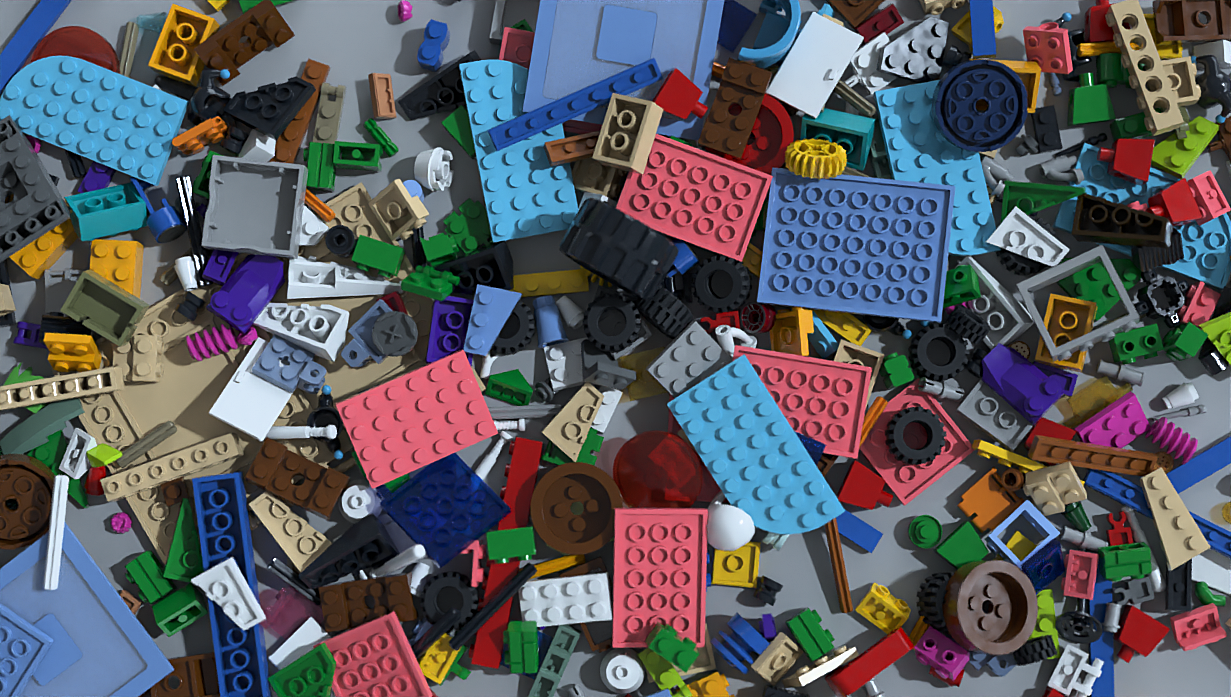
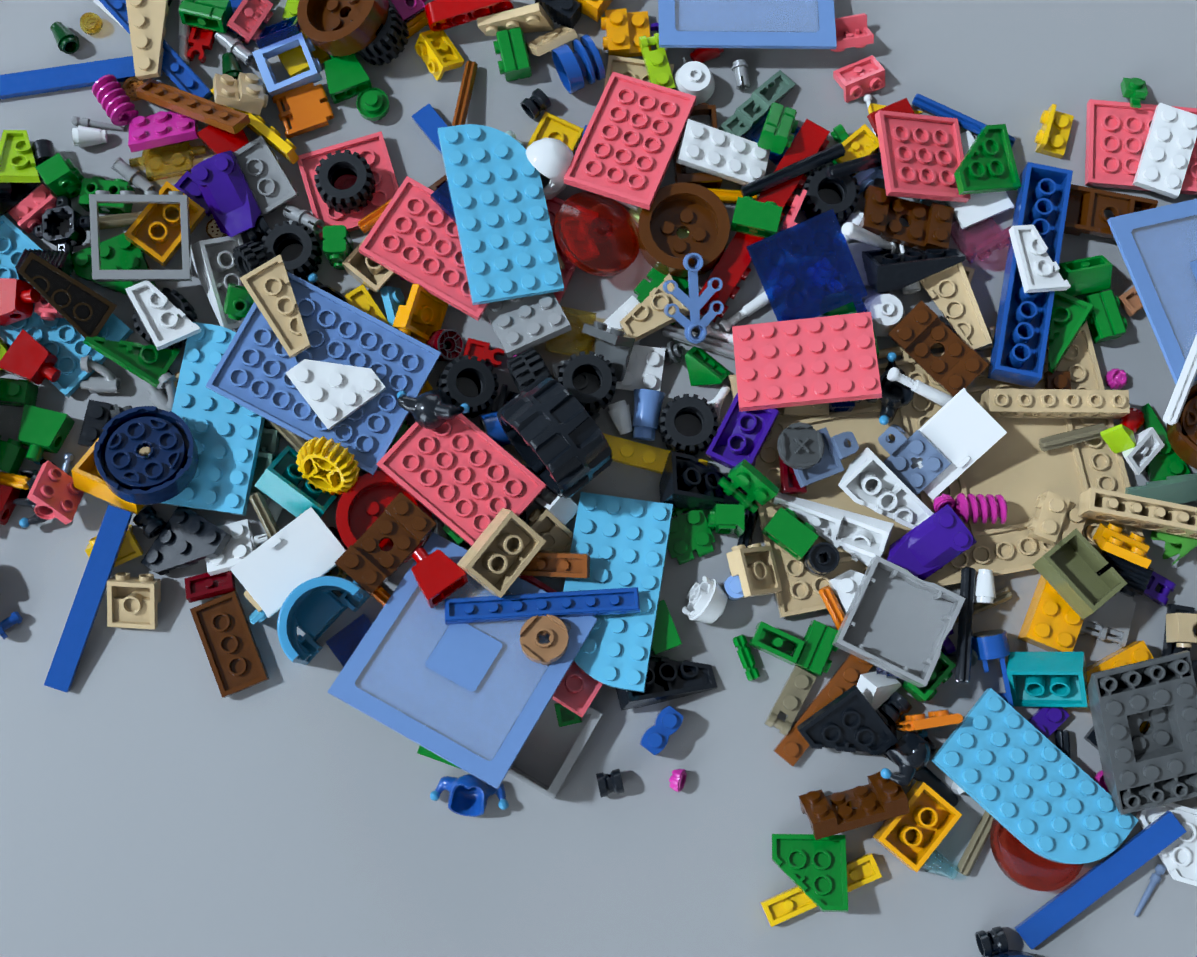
camera: 165 degrees left, 5 degrees down
(189, 306) = (991, 553): black wheel -> none
(219, 266) = (953, 577): dark purple plate -> none
(293, 580) = (972, 265): black axle -> none
(382, 96) = (731, 698): nougat plate -> none
(487, 318) = (703, 432): medium blue wing -> none
(540, 438) = (694, 301): none -> medium blue plant
(573, 67) = (544, 652): none -> medium nougat plate
(672, 647) = (642, 74): green brick -> none
(725, 338) = (482, 338): white plant -> none
(743, 243) = (431, 408): none -> black piece
(767, 627) = (549, 67): dark purple plate -> none
(838, 228) = (334, 389): none -> white plate
(863, 488) = (414, 158): red torso -> none
(925, 286) = (276, 300): none -> tan wing
(1013, 479) = (273, 114): dark orange cone -> none
(1092, 141) = (59, 397): black piece -> none

